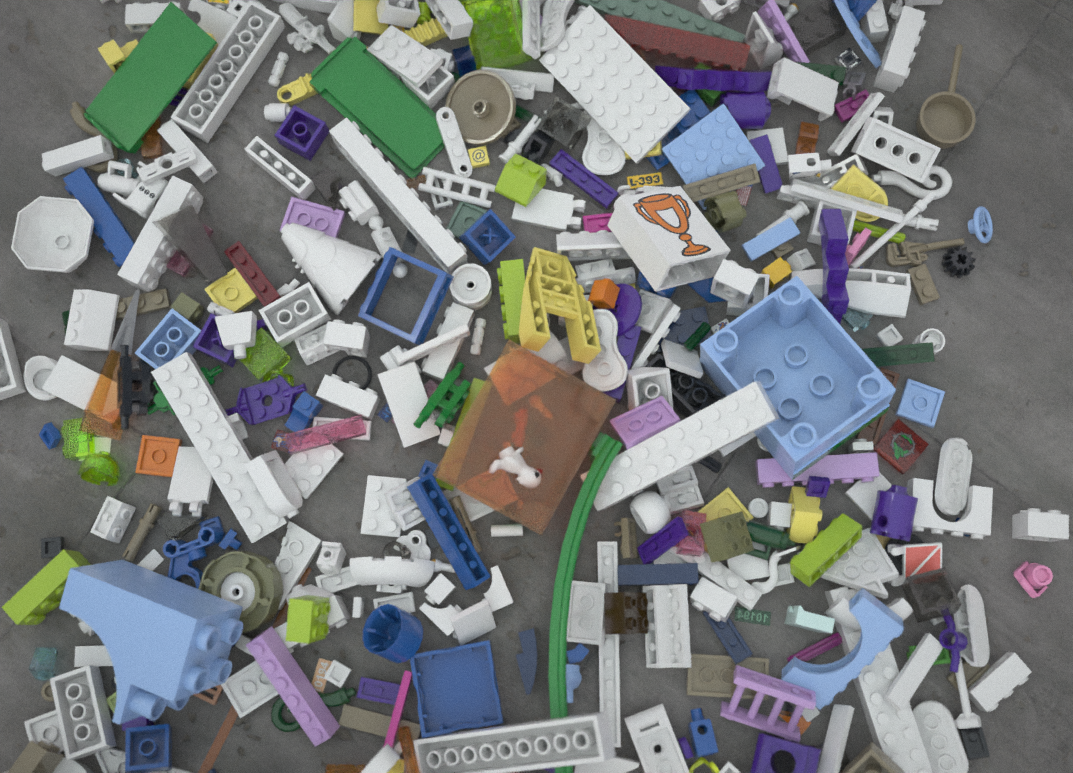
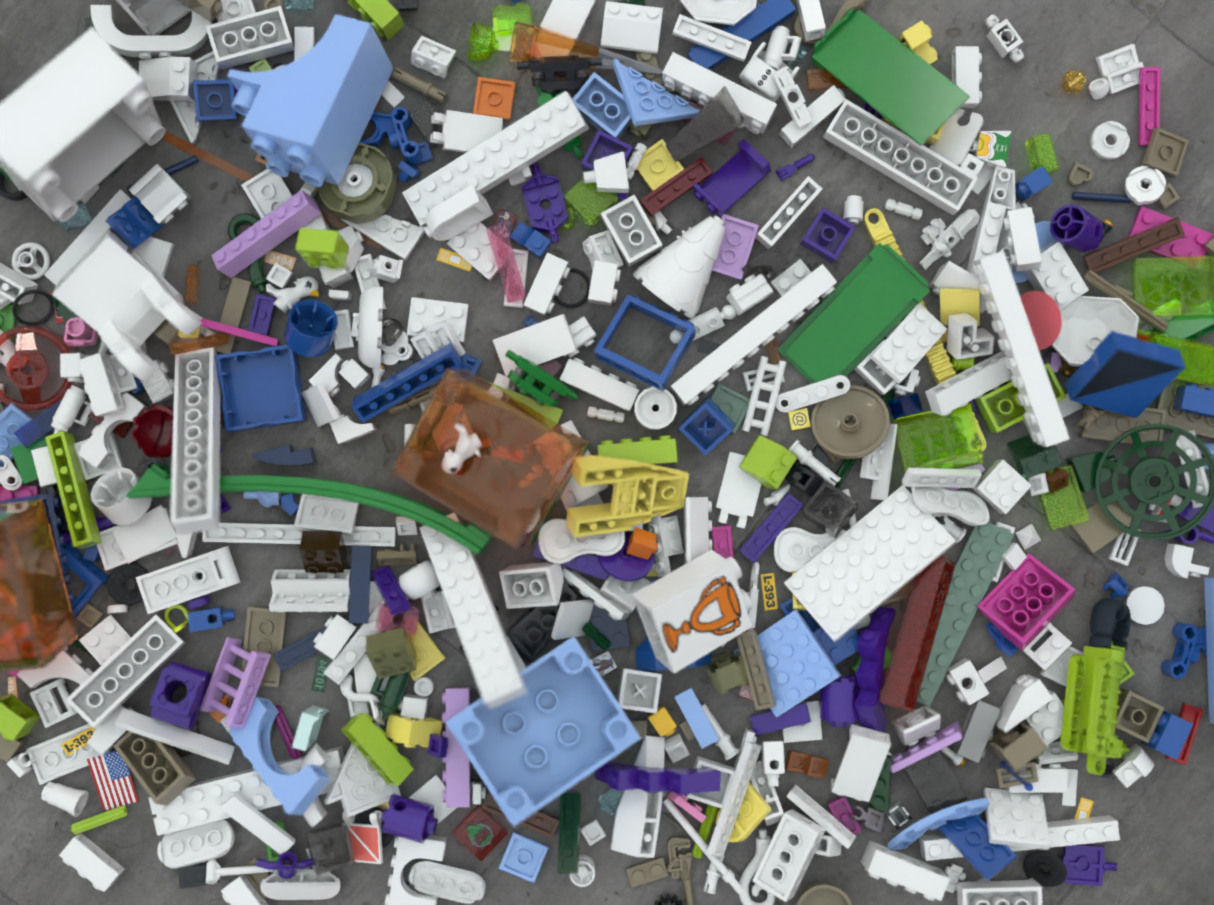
camera: 90 degrees right, 10 degrees up
(105, 241) = (711, 38): none -> white plate
(164, 300) = (648, 100): none -> light blue tile
(238, 172) = (788, 170): none -> dark purple piece
(245, 221) = (733, 179): none -> dark purple panel
(321, 493) = (453, 259): none -> yellow sticker
(346, 170) = (790, 277): none -> white plate
(361, 662) = (290, 296): none -> white animal
(433, 345) = (591, 369): white tile -> none
(595, 529) = (406, 526): none -> white plate
(644, 422) = (502, 578): lavender plate -> none
(734, 283) = (643, 676): white brick -> none

